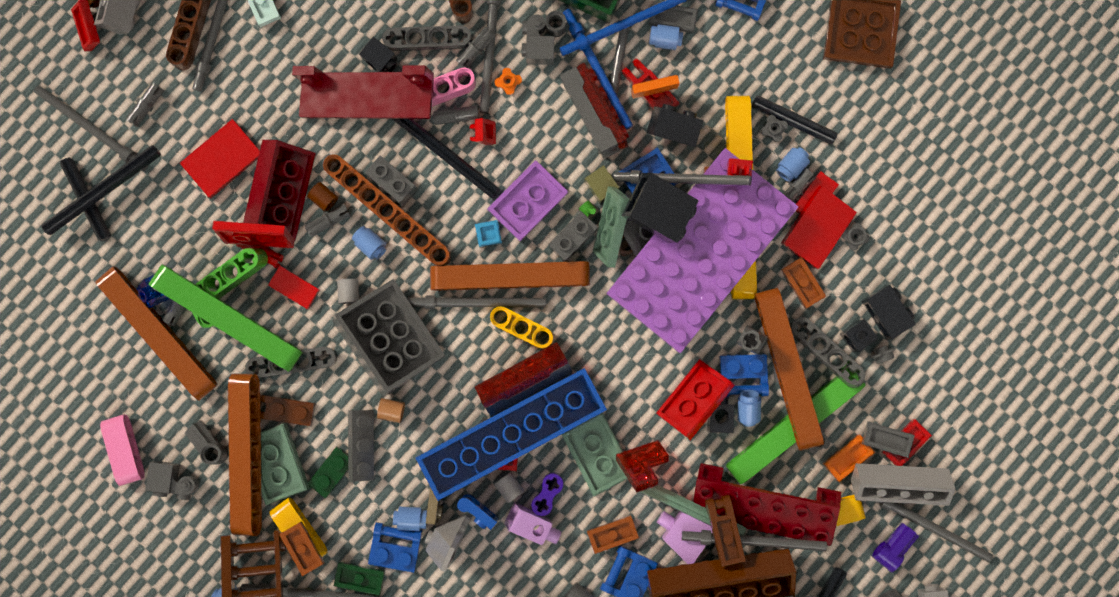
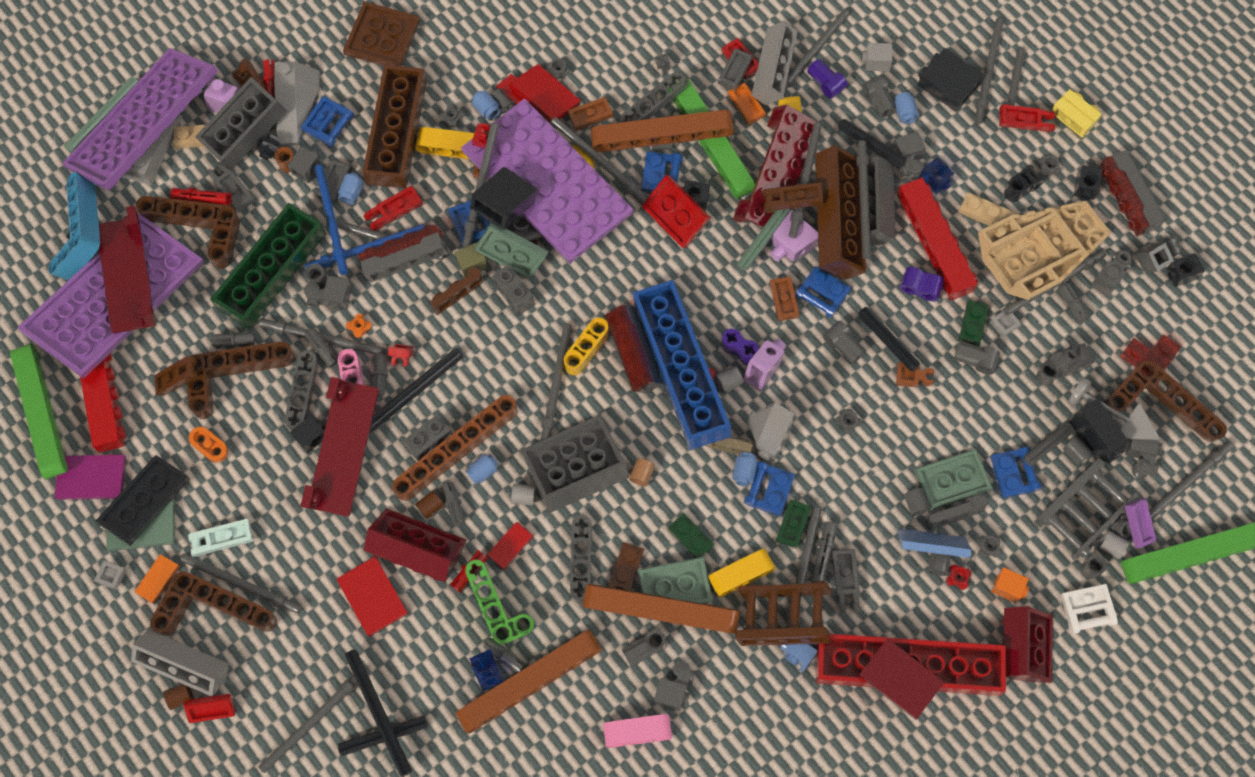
camera: 80 degrees left, 15 degrees down
(144, 104) = (302, 661): dark grey pin -> none
(225, 317) = (527, 602): bright green beam -> none
(253, 234) = (453, 562): red tile -> none
(302, 548) = (757, 563): dark orange plate -> none
(361, 445) = (669, 504): dark grey plate -> none
(483, 515) = (748, 402): blue plate -> none
(488, 233) = (495, 364): dark azure tile -> none
(509, 276) = (537, 351): dark orange beam -> none
(527, 201) = (472, 325): medium lavender plate -> none
(564, 177) = (456, 291): none -> reddish brown plate
(587, 208) = (488, 275): bright green hand -> none
(595, 453) = (713, 301): sand green tile -> none
(638, 464) = (726, 262): clear red plate -> none
(655, 86) = (393, 199): orange tile -> none
(675, 126) = (432, 190): black brick -> none
(720, 343) = (630, 186): none -> dark grey bar
(747, 68) = (395, 126): none -> reddish brown brick
(749, 408) = (690, 170): medium blue brick -> none
(752, 340) = (632, 152): dark grey piece -> none
(794, 119) = (448, 98): black axle -> none
(858, 335) = (643, 77): black brick -> none
(889, 312) = (627, 52): black brick -> none

